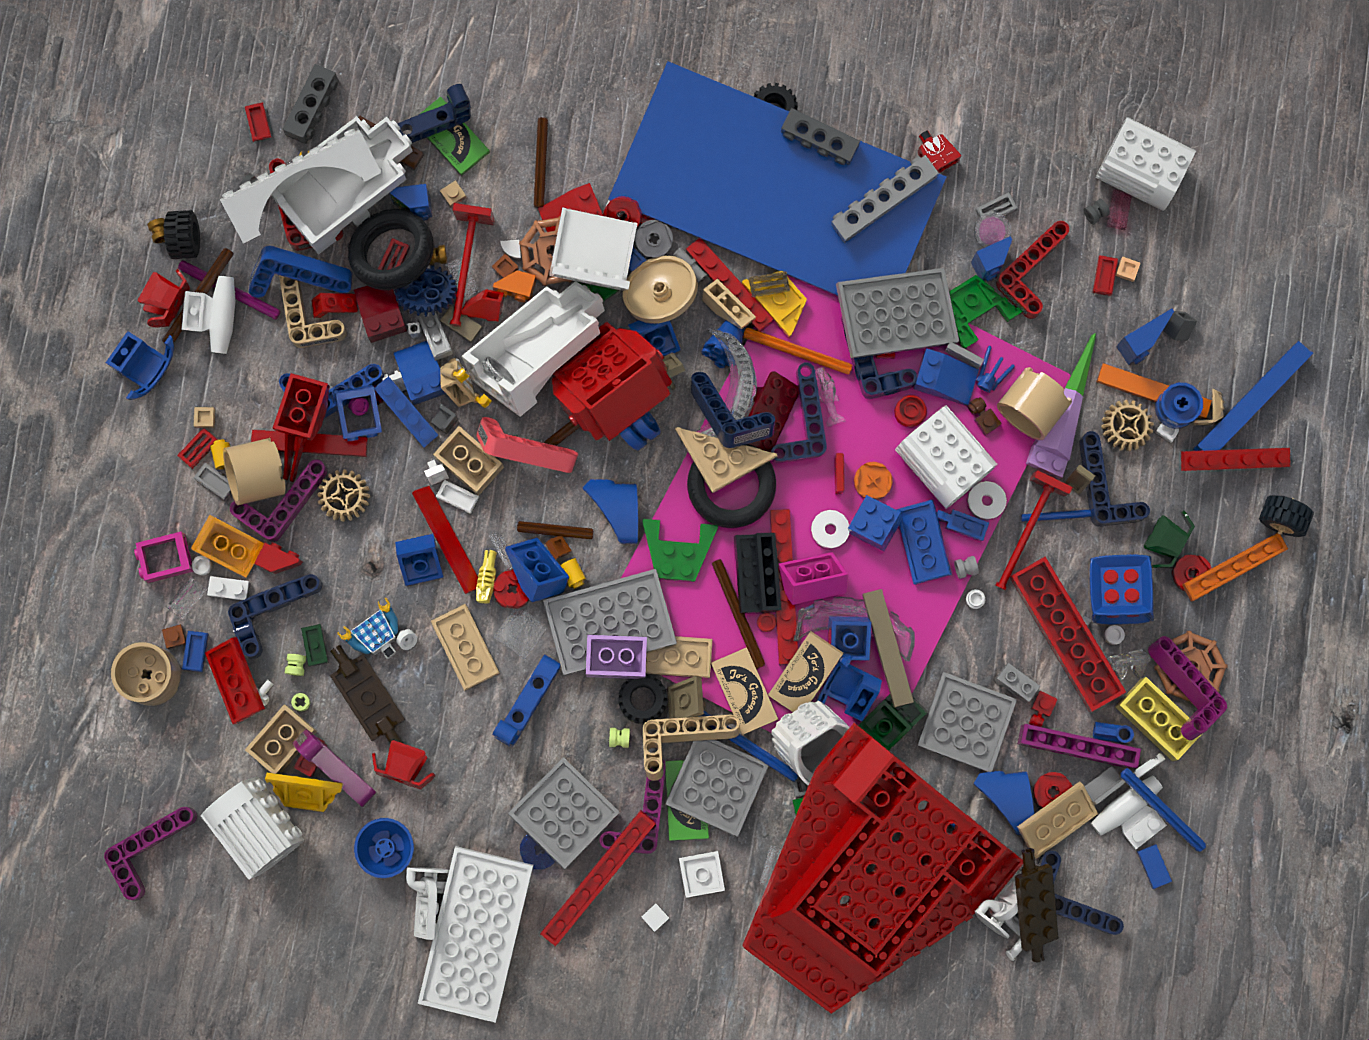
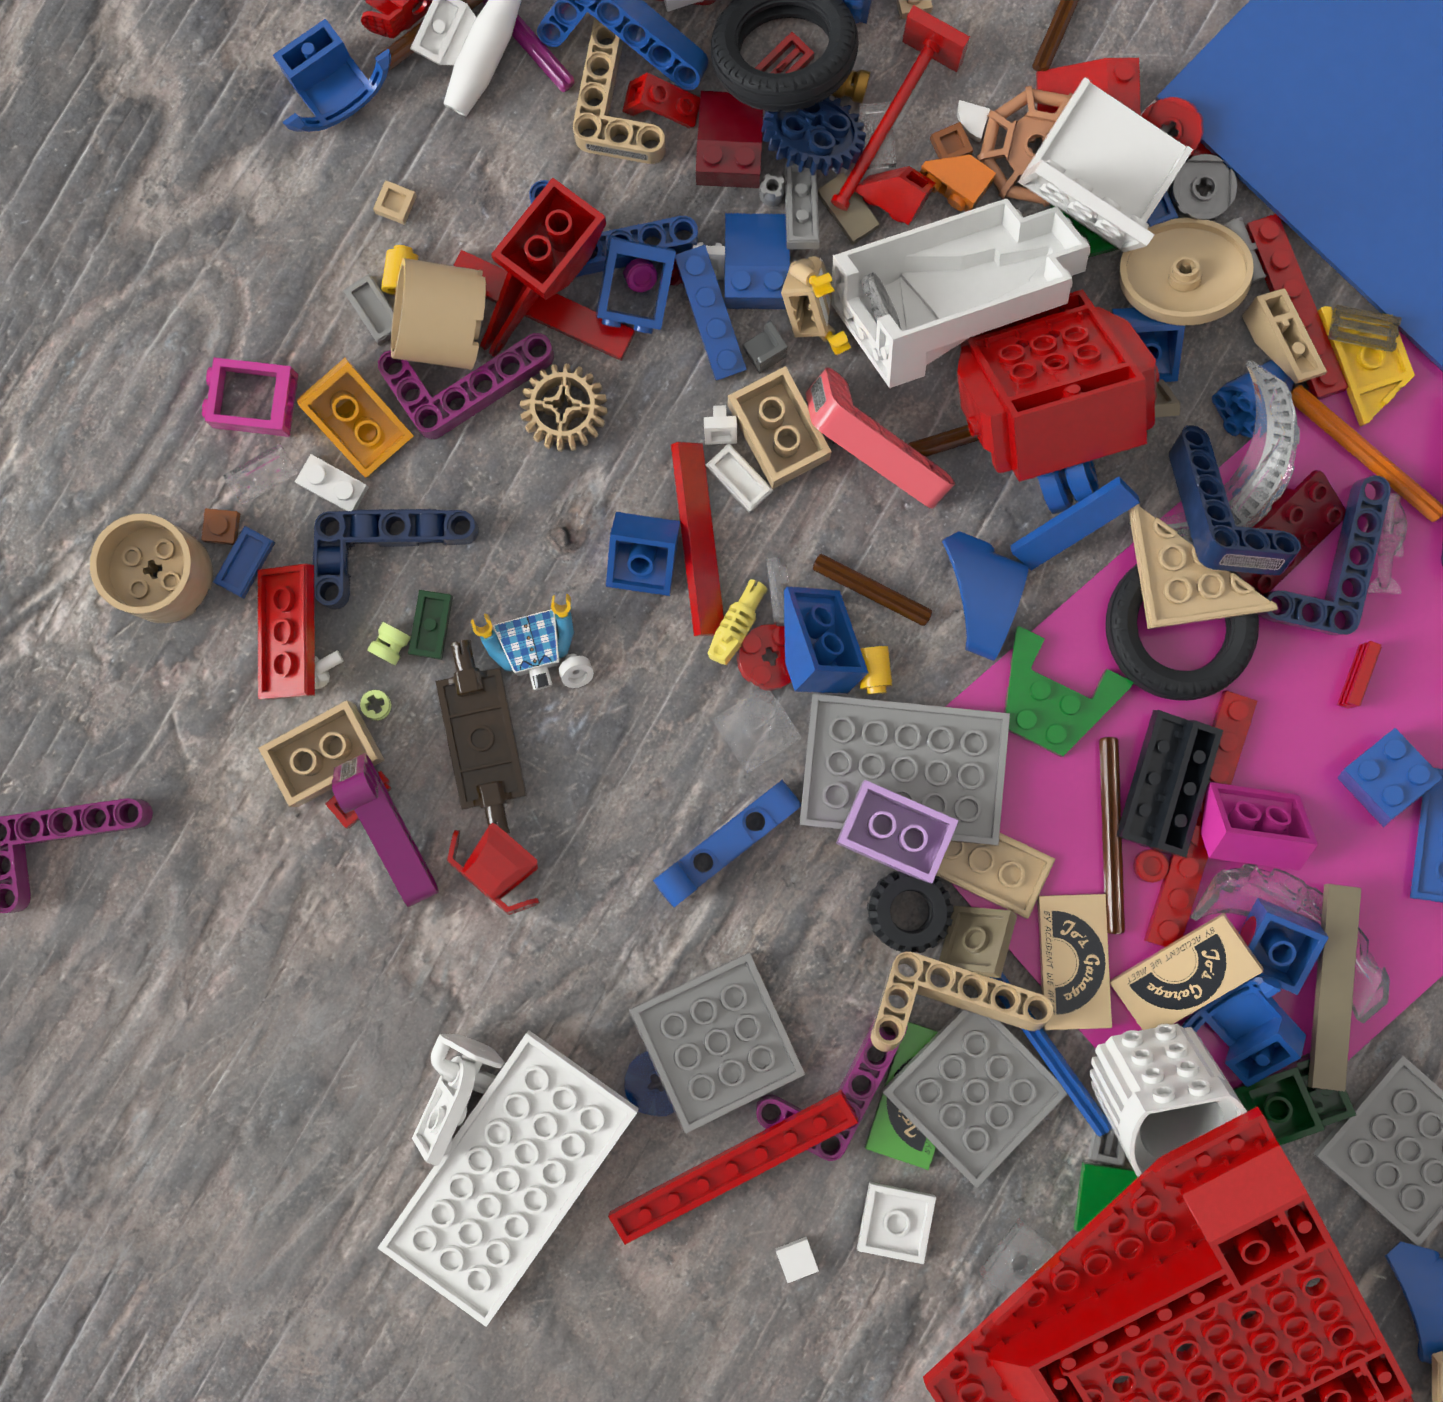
camera: 25 degrees right, 5 degrees up
(201, 565) = (304, 433): white tile -> none
(202, 454) = (372, 258): red tile -> none
(252, 827) = (223, 874): white piece -> none
(275, 560) = (419, 467): red slope -> none
(303, 792) = (325, 849): yellow wing -> none
(373, 844) = (404, 1002): blue piece -> none
(465, 647) = (661, 718): tan tile -> none
(558, 547) = (867, 618): dark orange plate -> none
(619, 737) = (849, 956): yellowish green wheel -> none
(650, 451) = (1075, 523): none -> blue tile
(838, 521) = (1328, 754): white tile -> none
(873, 480) = (1407, 705): orange tile -> none

